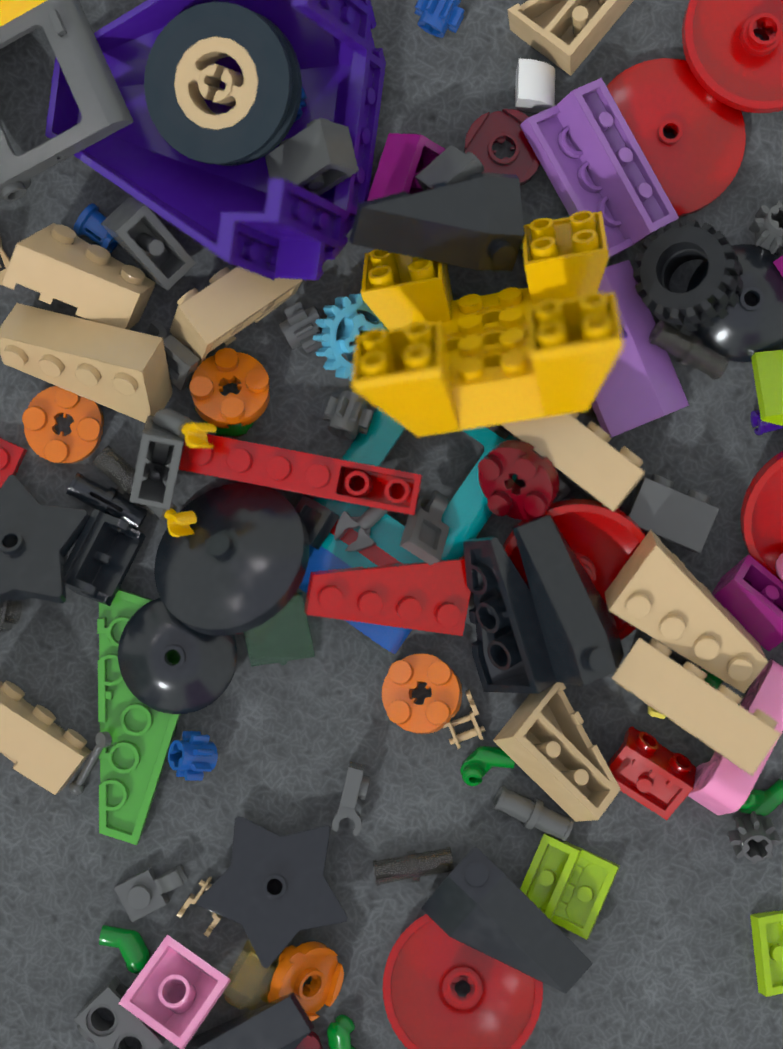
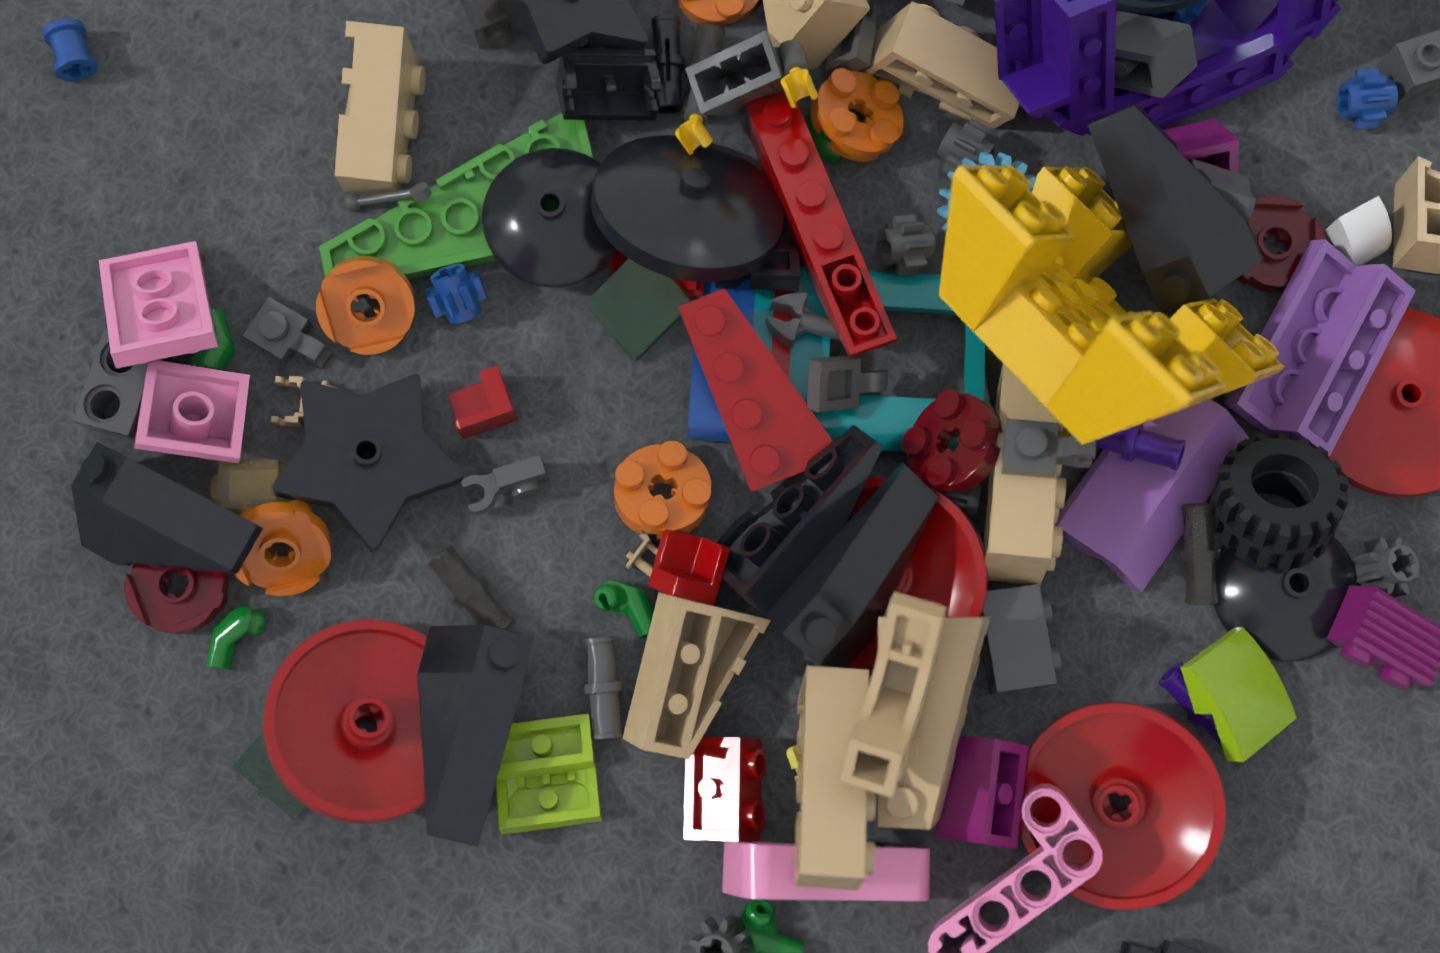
camera: 55 degrees right, 10 degrees down
(78, 974) = (156, 304): none -> bright pink plate
(150, 808) = (352, 328): none -> orange plate
(283, 781) = (483, 405): none -> red panel
(489, 710) = (688, 567): none -> red panel
(561, 434) = (1035, 449): none -> dark grey plate
(677, 642) = (894, 696): none -> tan arch

